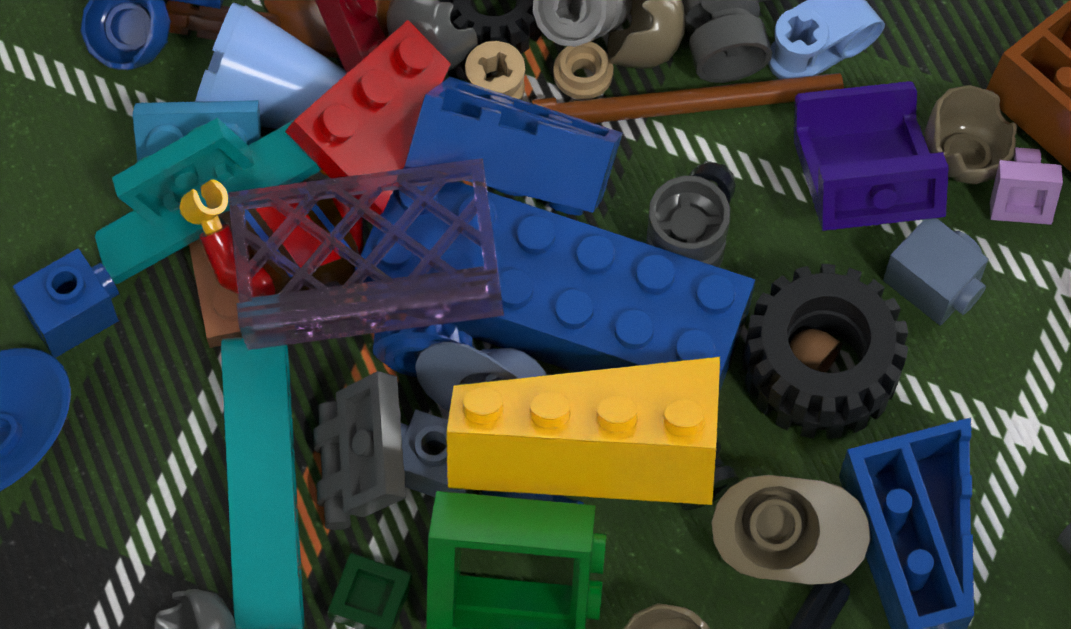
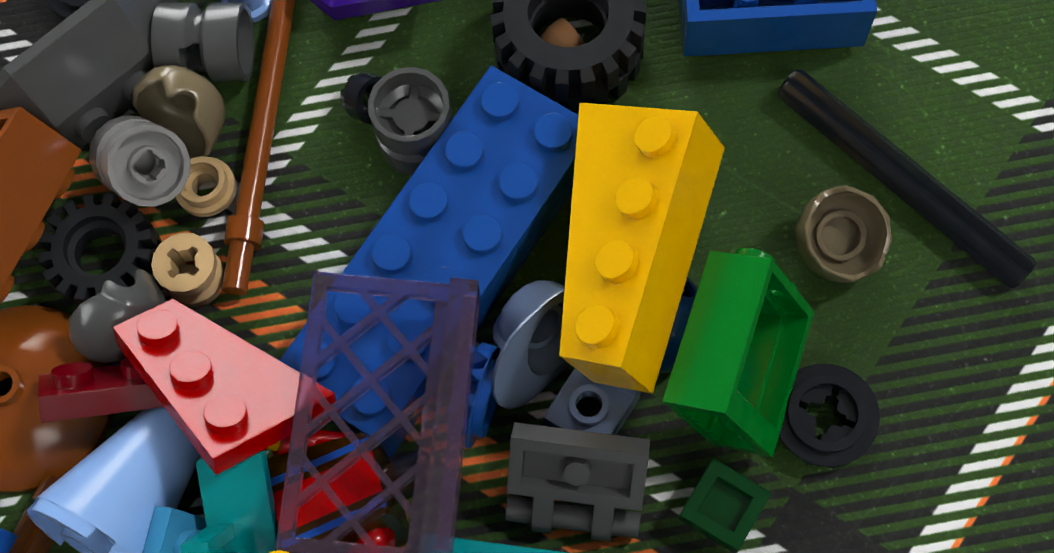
camera: 70 degrees left, 5 degrees up
(521, 145) = (268, 268): blue wedge -> none
(790, 529) = (747, 92): dark tan piece -> none

